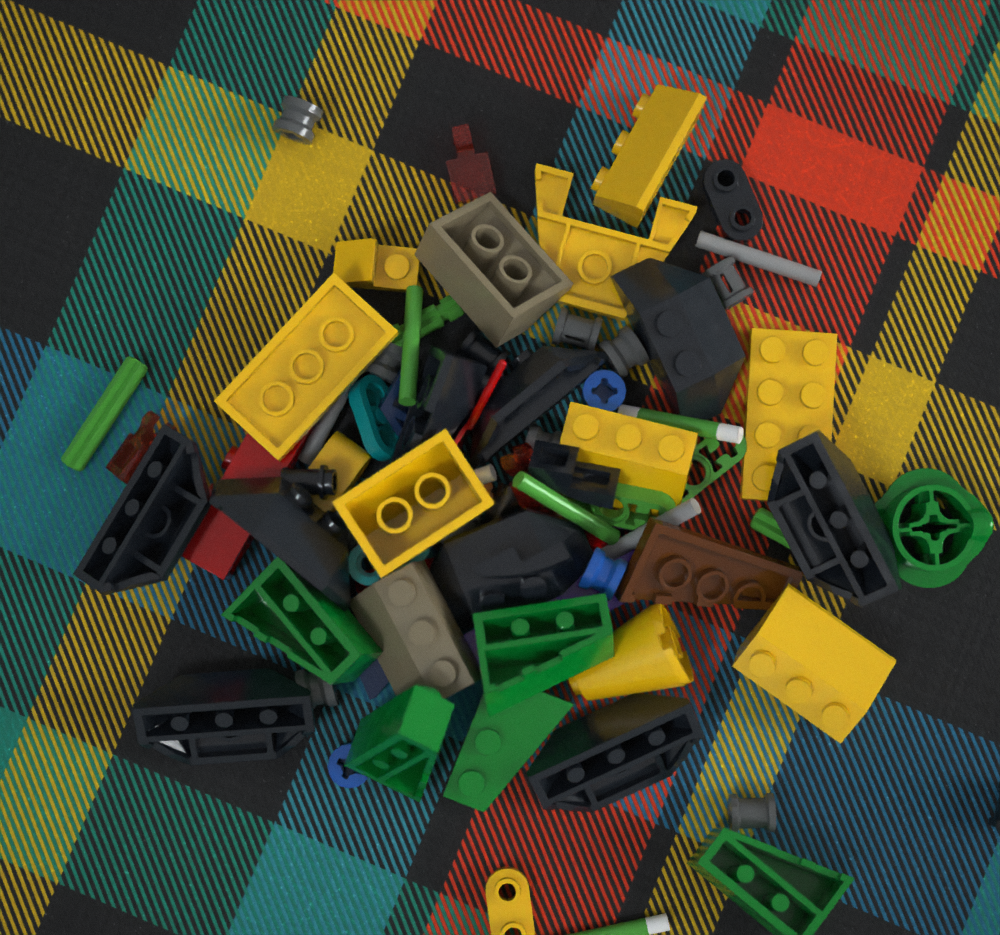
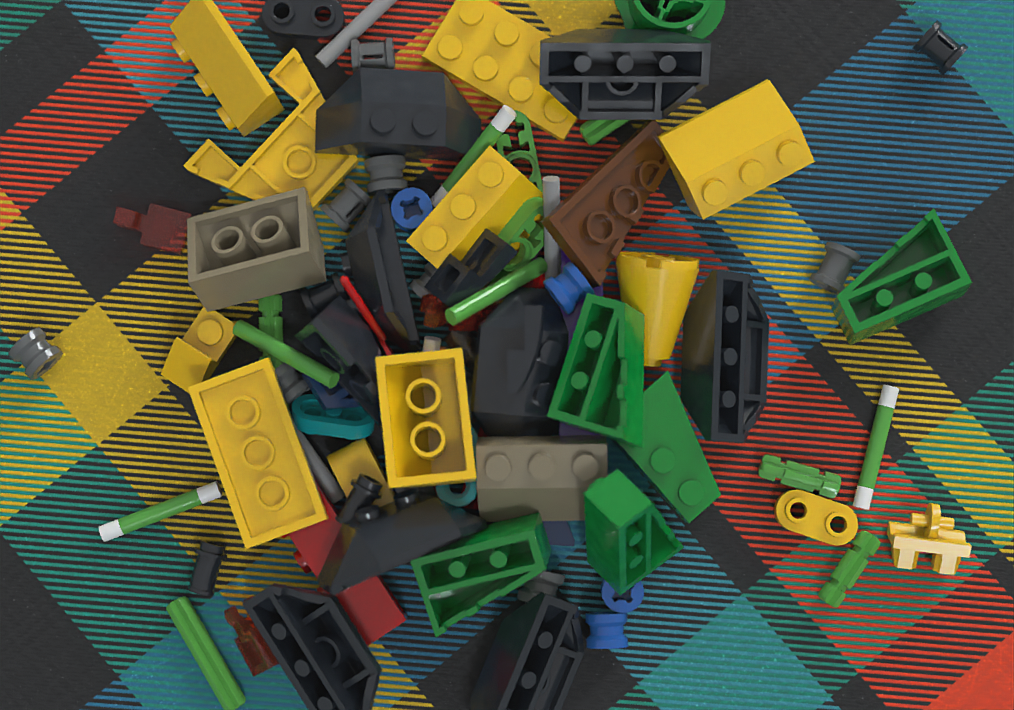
camera: 60 degrees left, 0 degrees up
(182, 374) = (206, 567): none -> black pin
(212, 306) = (160, 511): none -> bright green bar
(307, 768) = (606, 630): none -> blue wheel
(540, 877) = (799, 476): none -> bright green axle

